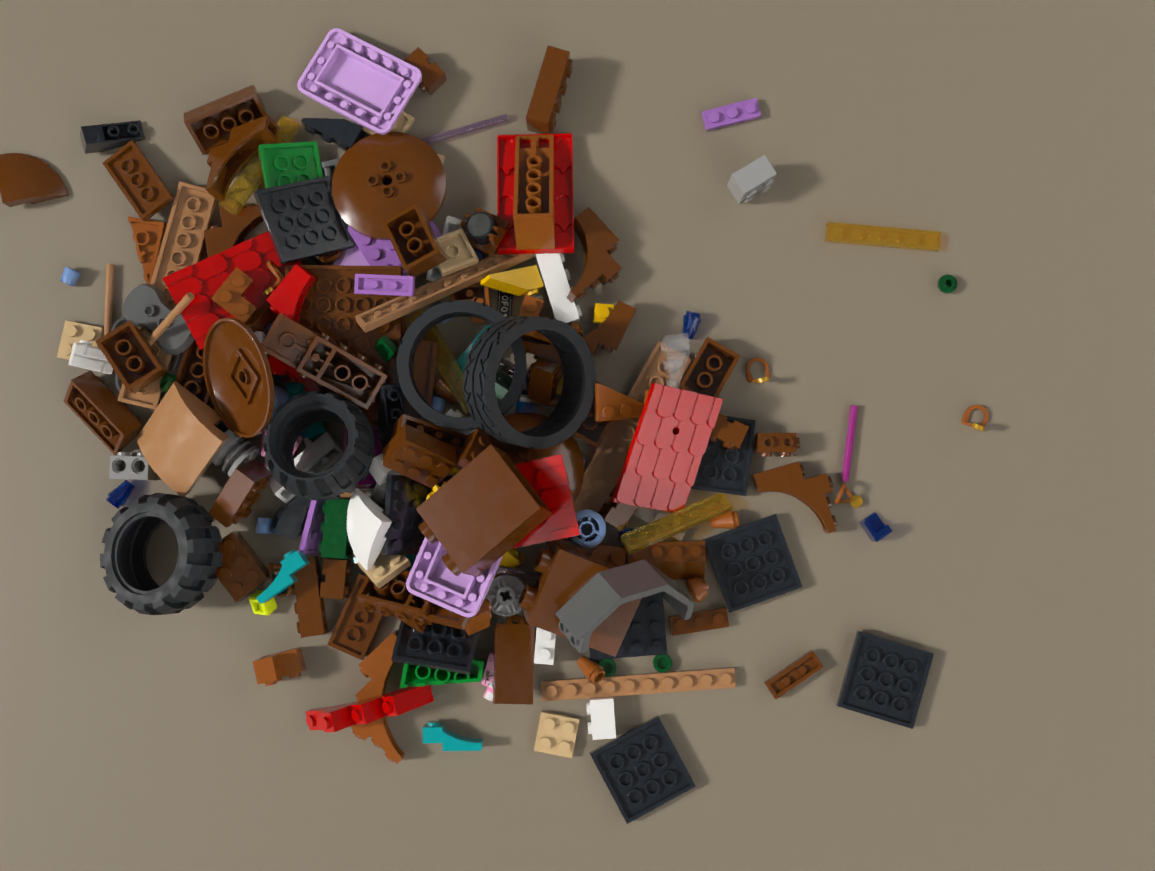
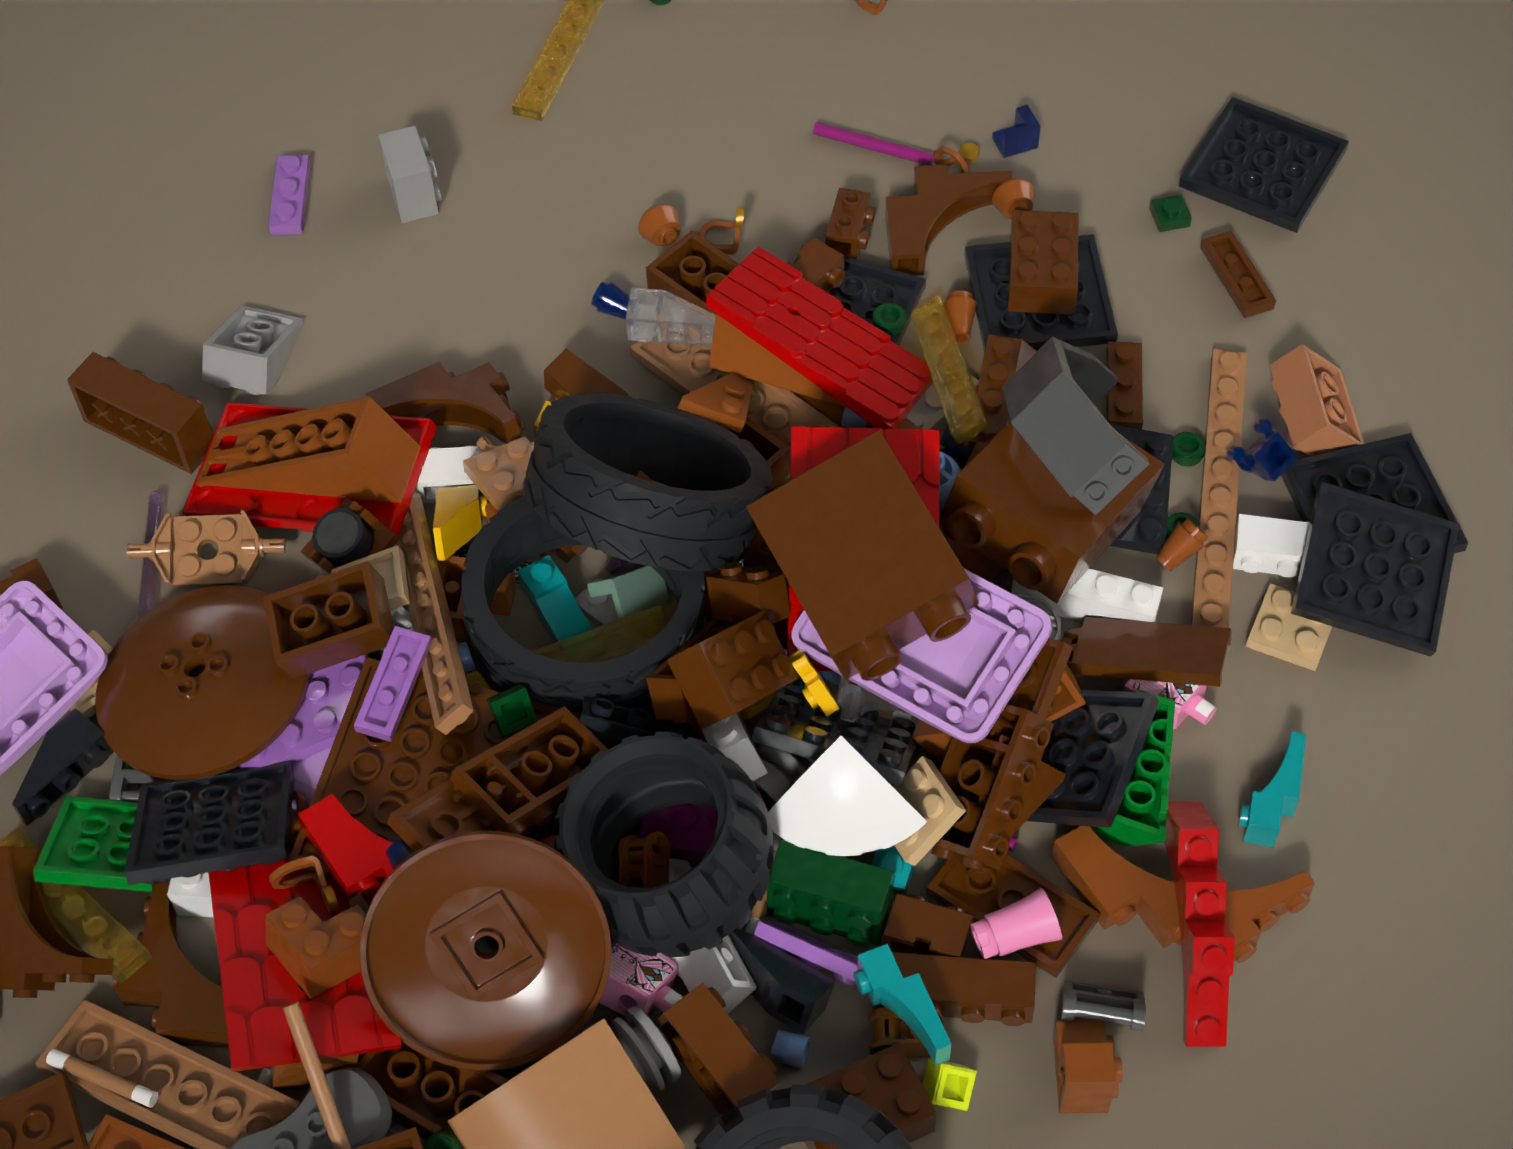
camera: 75 degrees left, 30 degrees down
(175, 215) = (102, 1078): none -> medium nougat bar
(317, 667) = (1103, 1004): none -> dark grey plate
(323, 435) = (644, 866): none -> dark orange piece
(338, 622) = (1017, 926): none -> bright pink plant
(466, 145) = (180, 538): none -> medium nougat plate
(546, 299) = (500, 469): none -> medium nougat plate
(592, 776) = (1375, 569): none -> black plate
(612, 132) = (250, 350): none -> light grey slope
(658, 706) = (1267, 455): none -> clear blue piece
(705, 731) = (1314, 403): none -> nougat slope
(709, 481) = (890, 318): none -> dark green tile
(751, 335) = (660, 225): none -> dark orange cone
(766, 562) = (1043, 262): none -> reddish brown brick
(819, 536) = (1013, 195): none -> dark orange cone
(834, 628) = (1170, 213): none -> dark green plate

